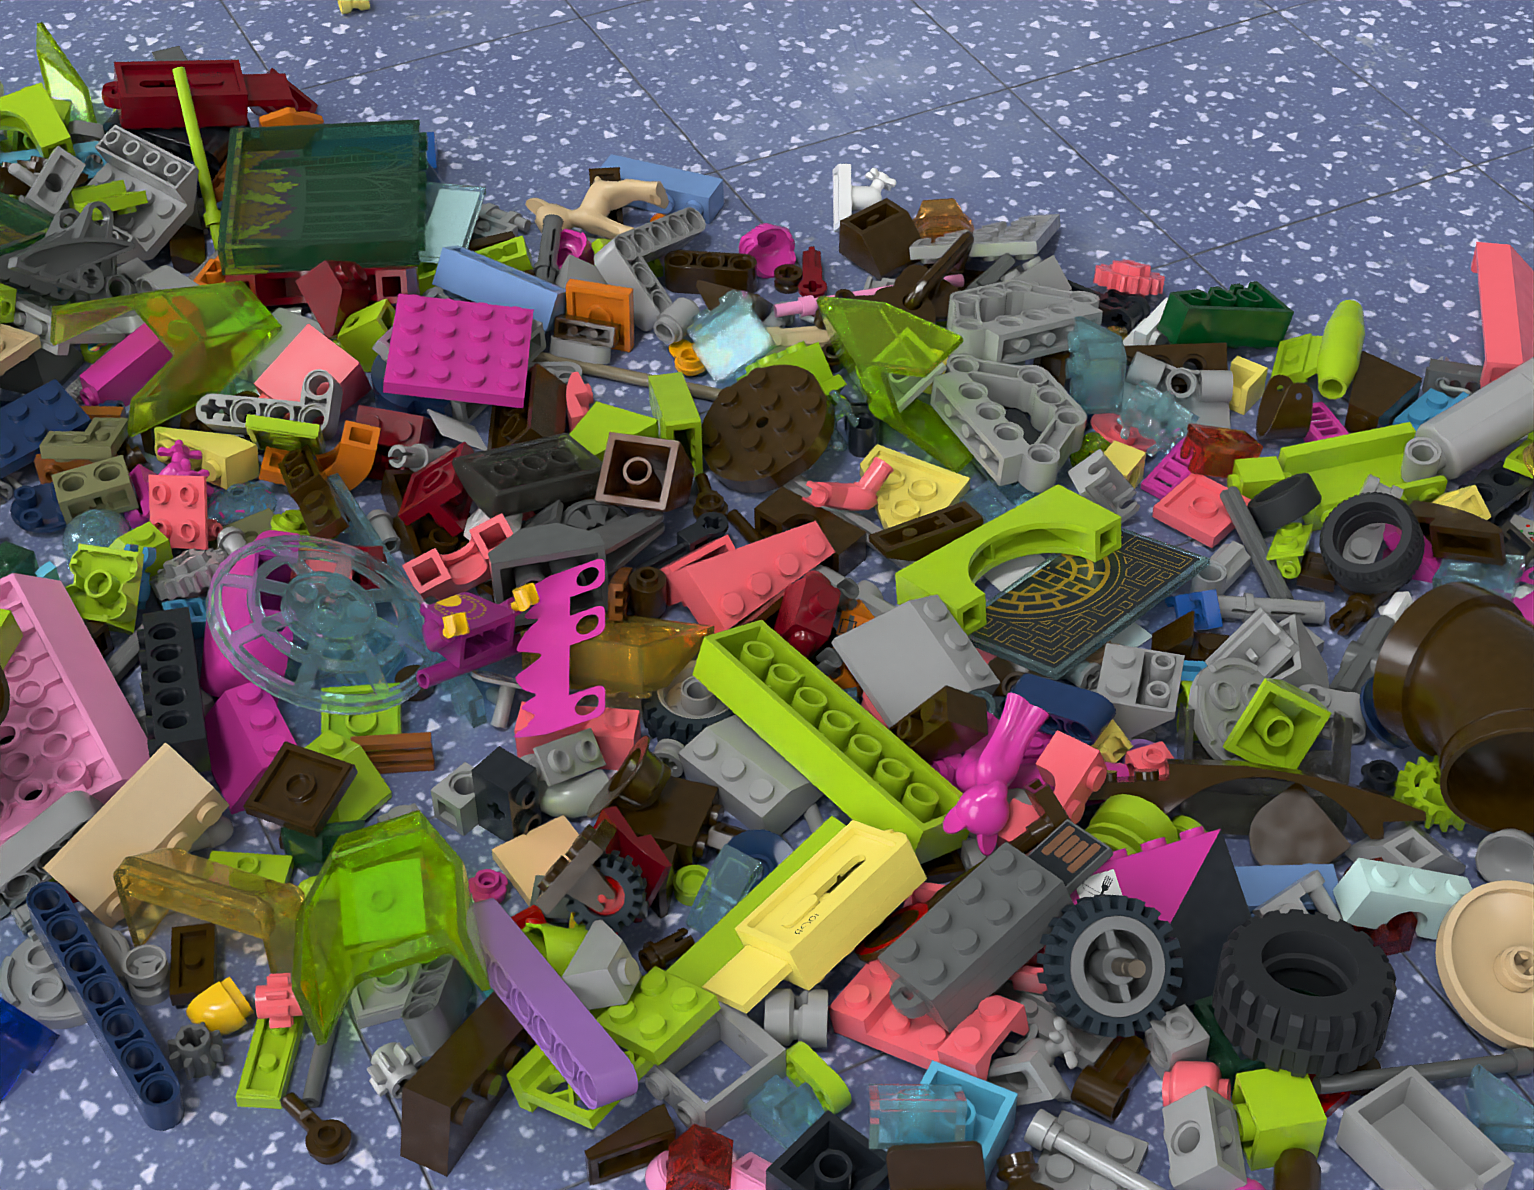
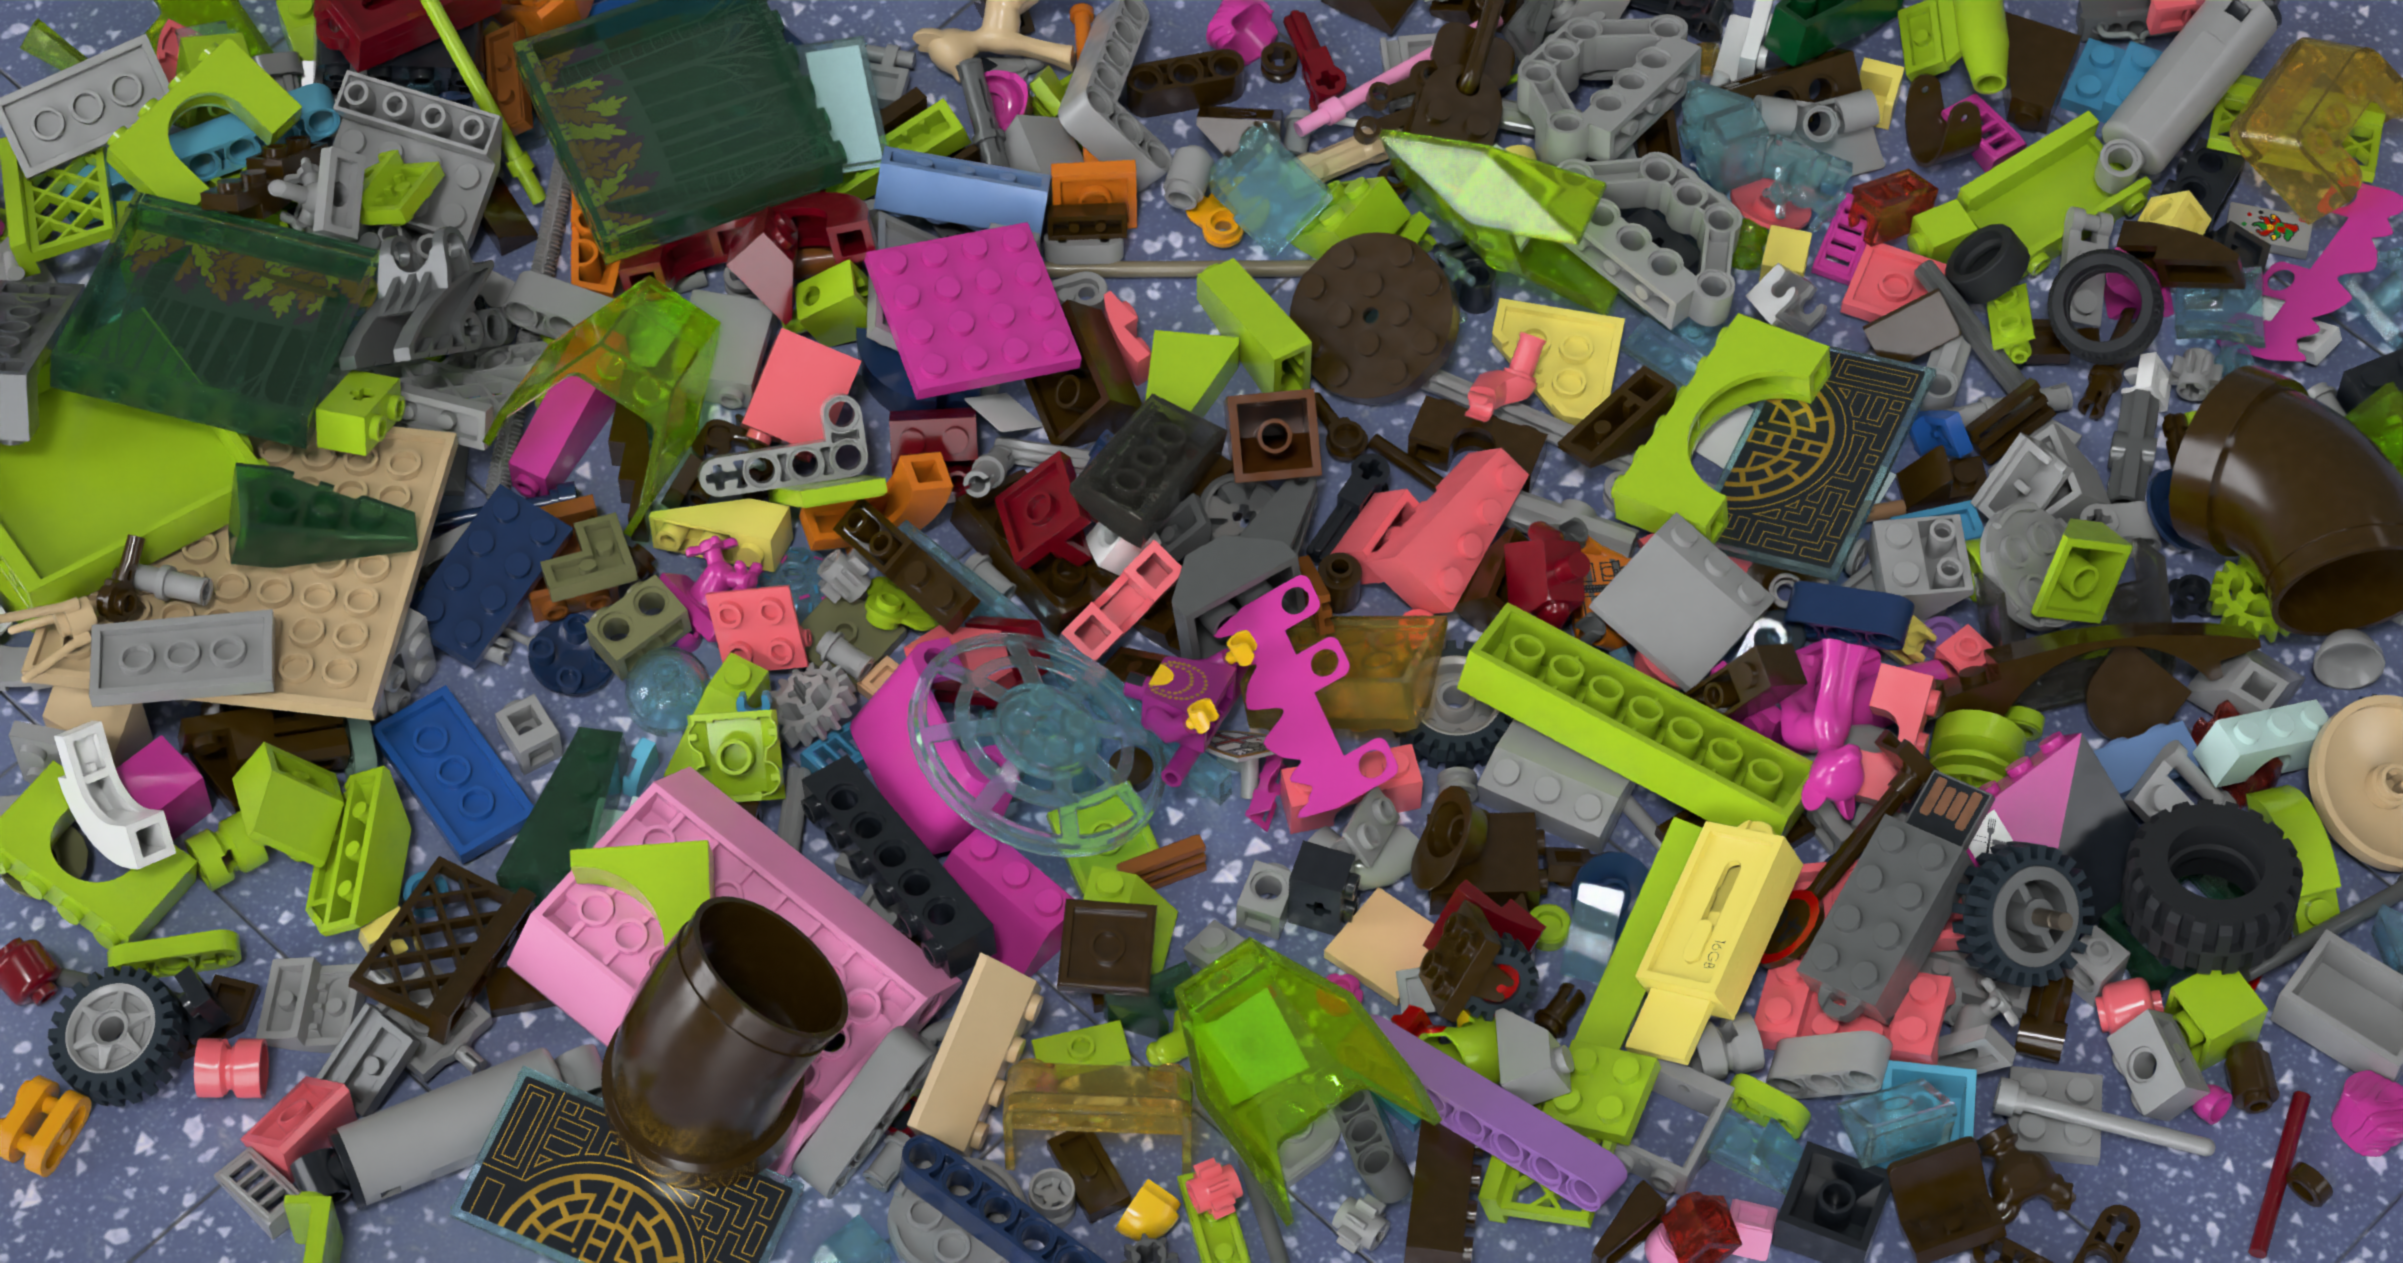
camera: 20 degrees left, 15 degrees up
(267, 496) = (844, 576): none -> light grey gear
(505, 727) = (1266, 792): none -> dark pink piece
(883, 1053) = (1830, 1064): none -> light grey beam
(1205, 529) = (1914, 328): none -> slope
(1291, 603) = (2024, 420): none -> dark brown tile
(1416, 1005) = (2302, 825): none -> lime arch

